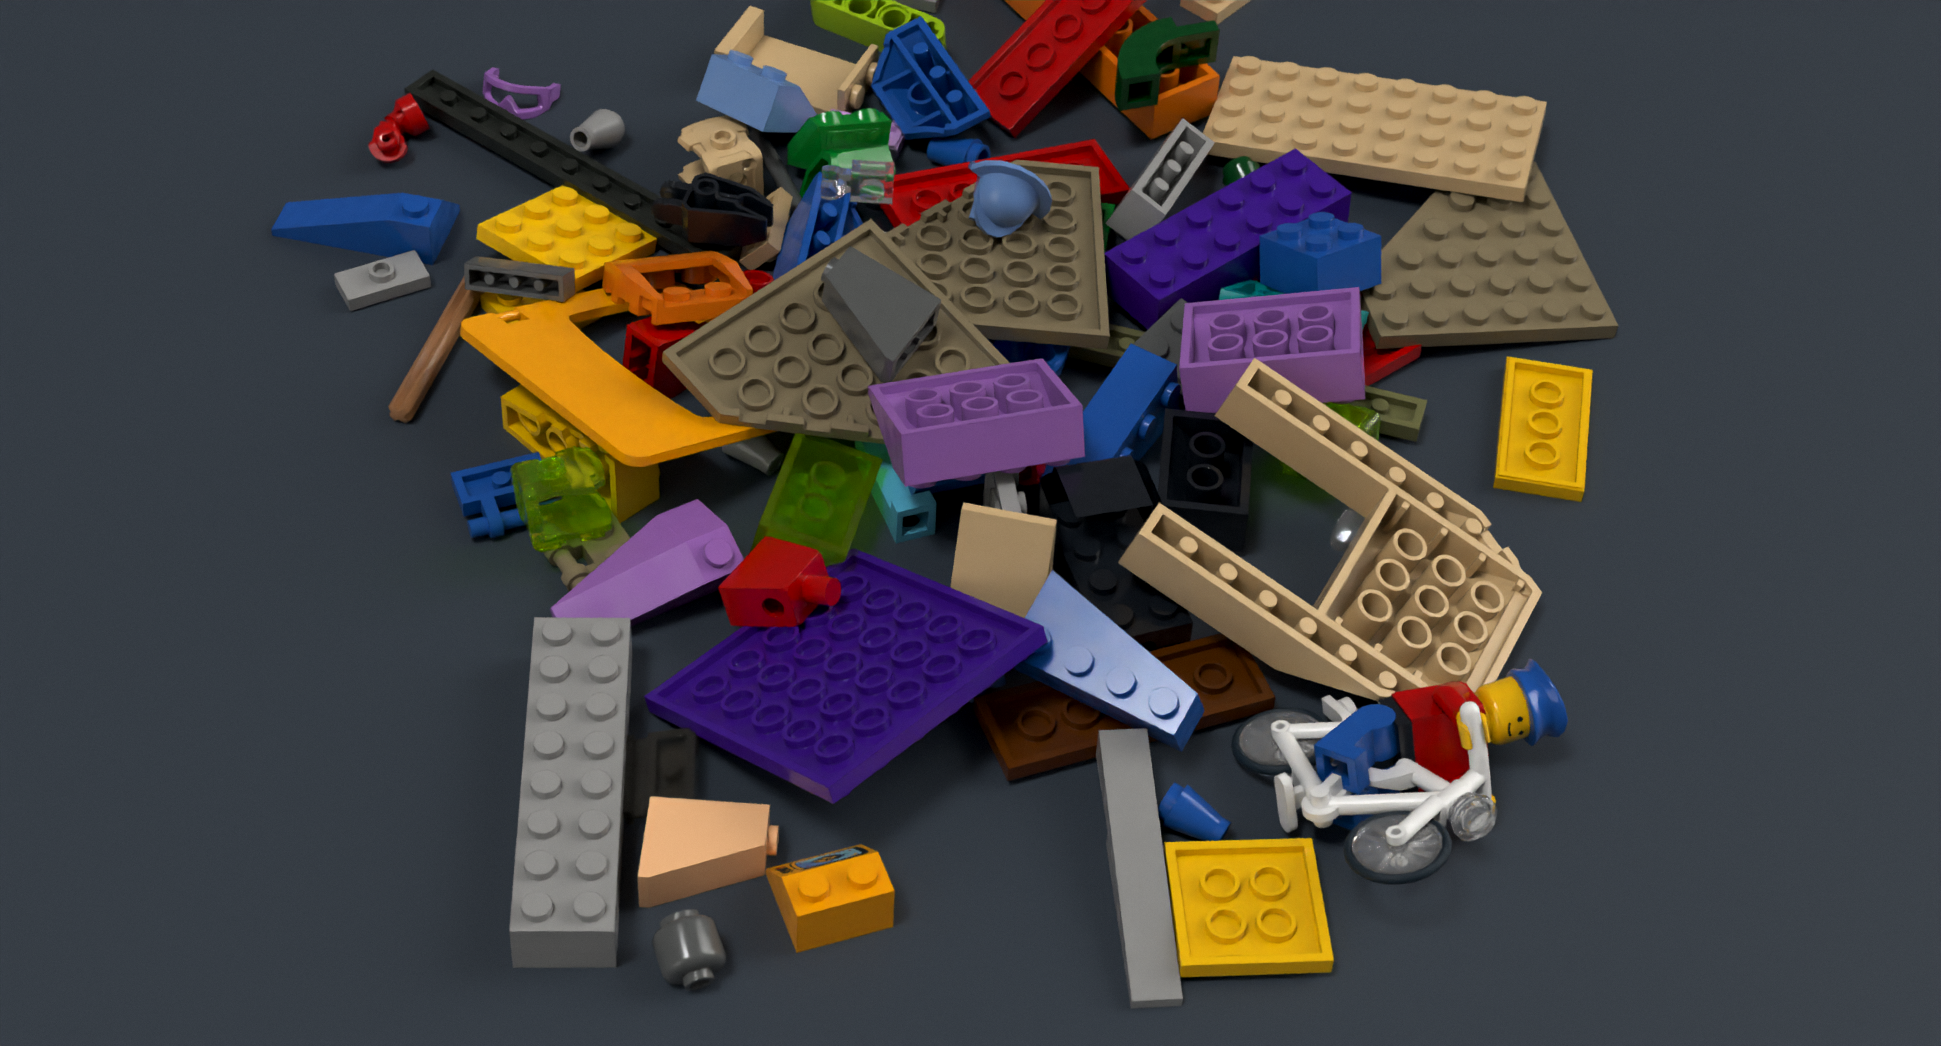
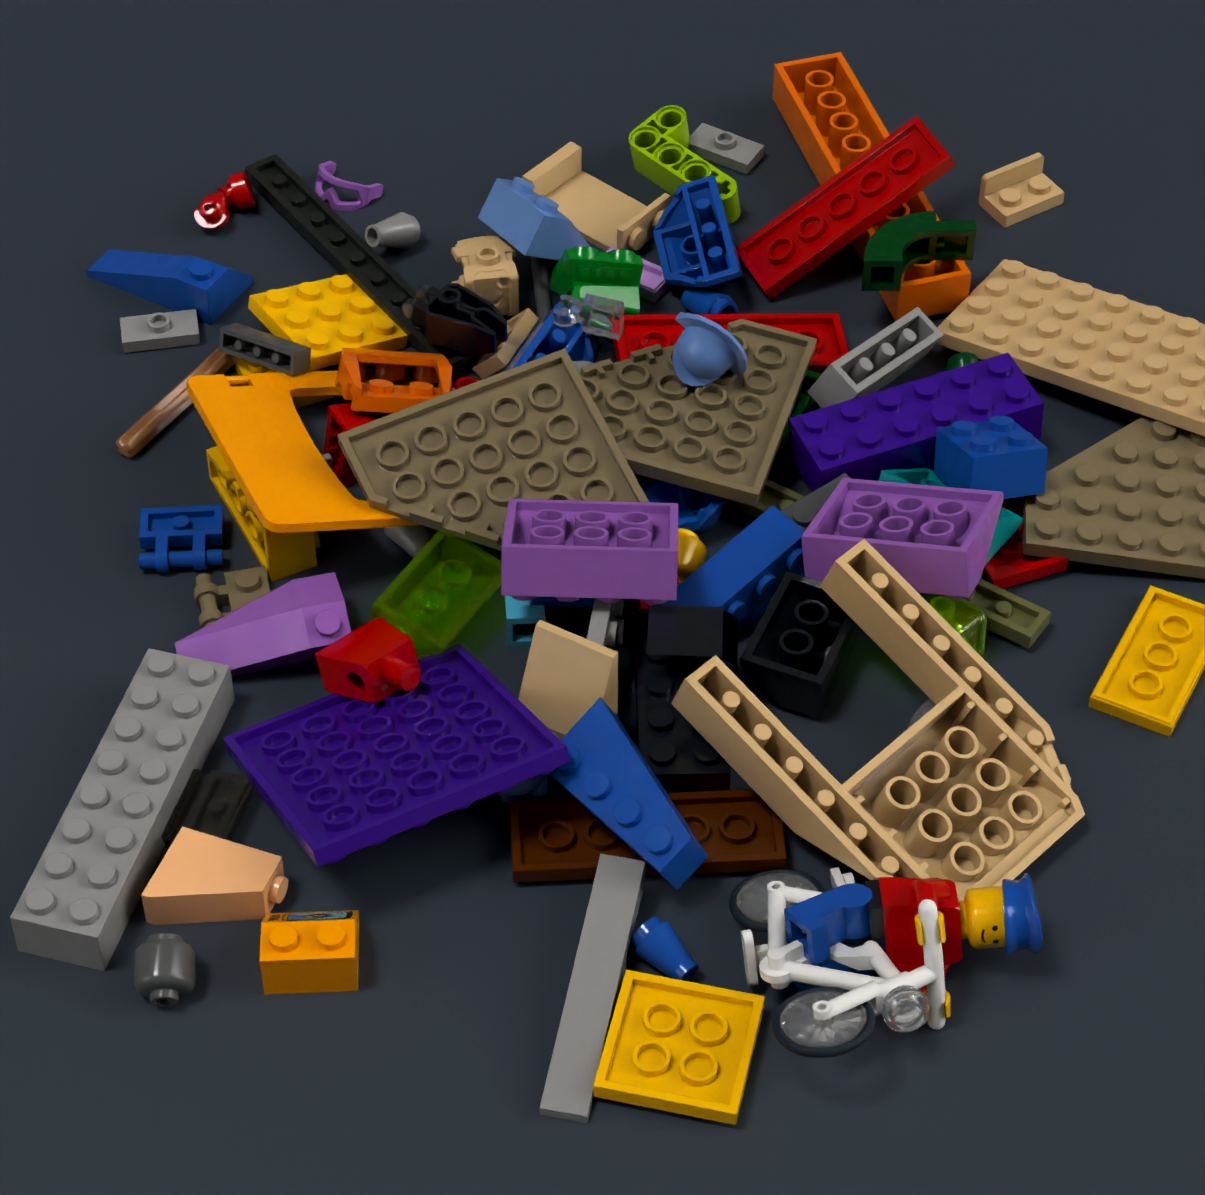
camera: 20 degrees right, 0 degrees up
(581, 511) = (223, 528): clear neon green piece -> none
(878, 310) = (539, 433): dark grey slope -> none

